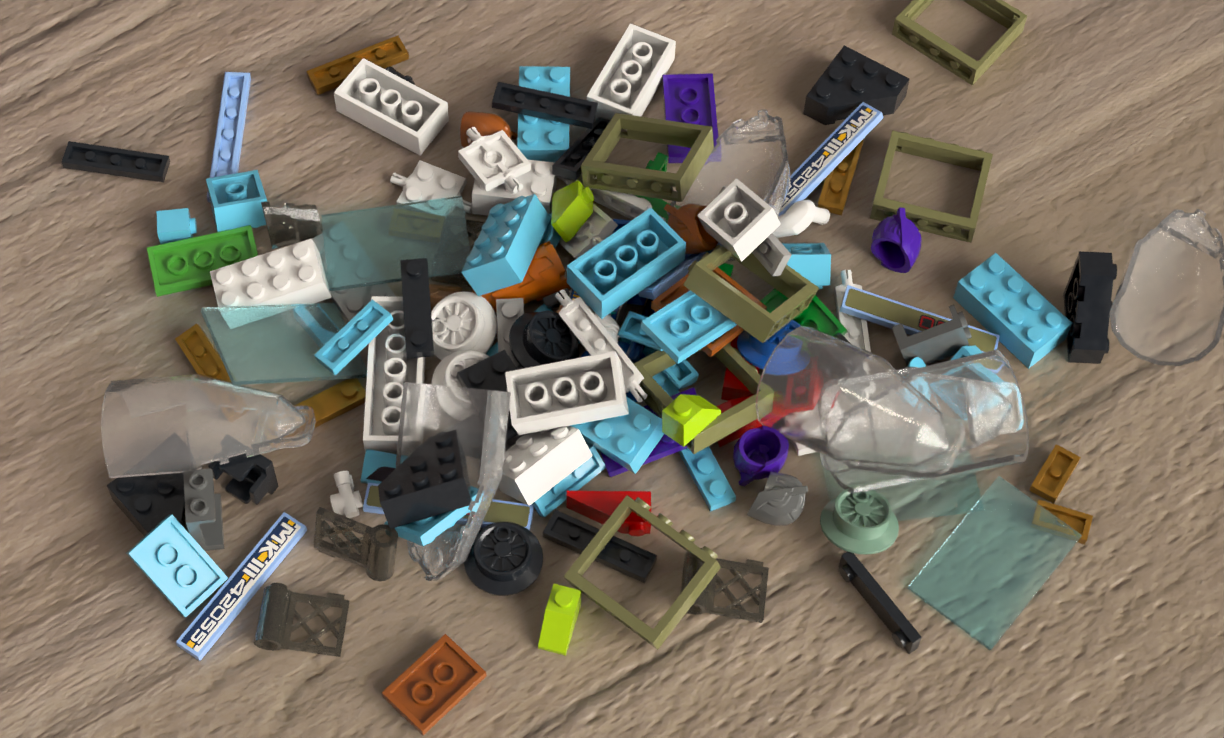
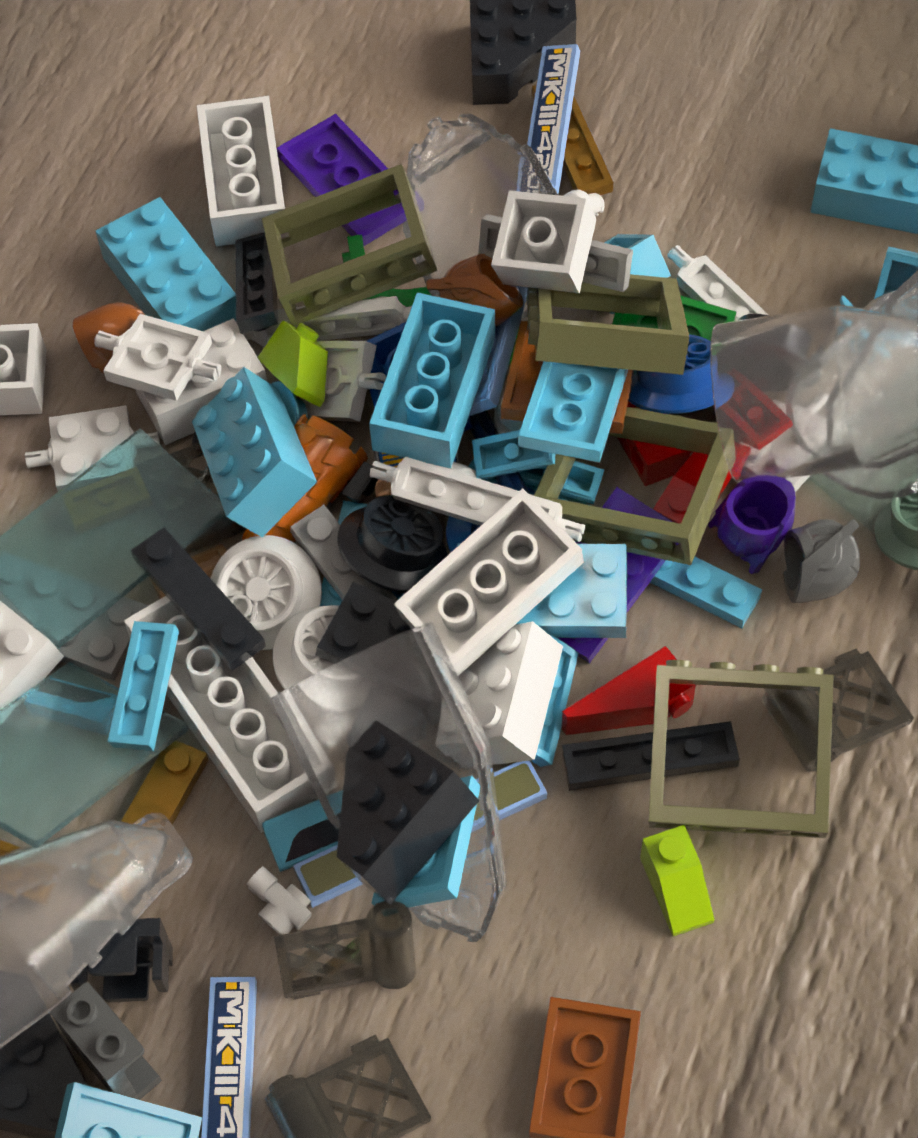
camera: 30 degrees left, 0 degrees up
(504, 559) = (550, 850): black wheel -> none
(544, 105) = (167, 256): black plate -> none
(687, 417) = (666, 522): lime slope -> none
(896, 242) = (706, 183): dark purple helmet -> none
(914, 320) = (800, 259): olive tile -> none
(924, 218) = (699, 143): olive window -> none
(934, 342) = (850, 267): dark grey panel -> none

